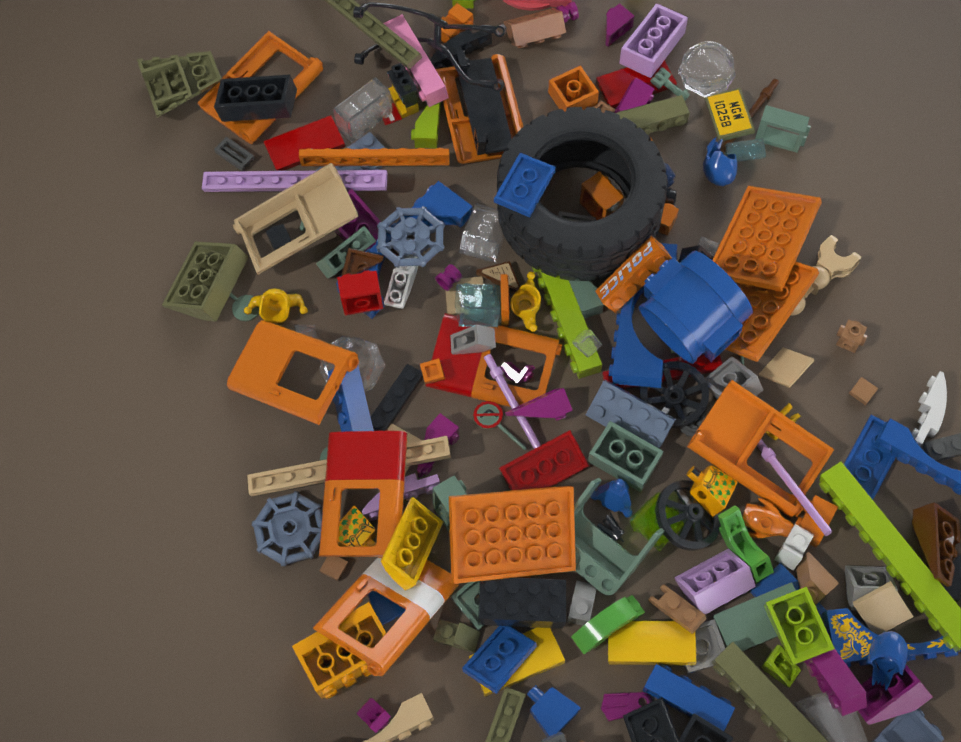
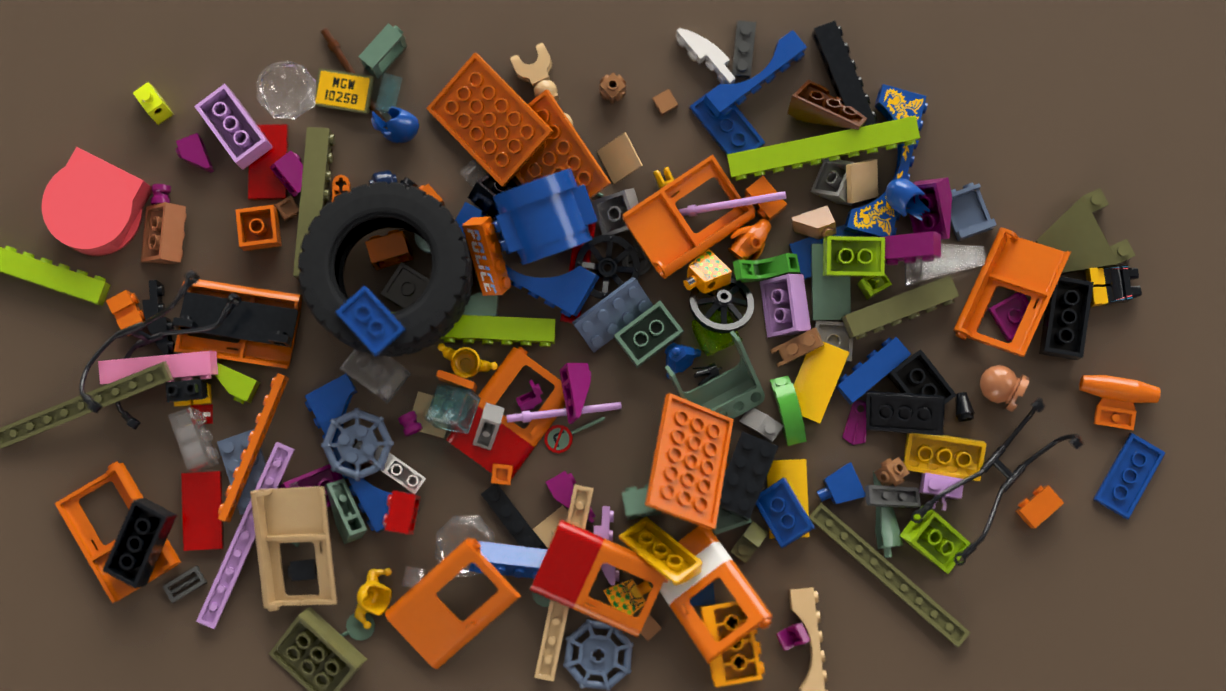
camera: 70 degrees left, 15 degrees up
(178, 78) = (76, 614): olive wedge -> none
(360, 261) = (364, 504): reddish brown tile -> none
(493, 273) = (425, 372): tile -> none
(545, 464) = (628, 409): red tile -> none
(587, 343) = (530, 324): clear slope -> none
(661, 78) = (282, 135): sand green hinge -> none
(794, 547) = (782, 227): white slope -> none

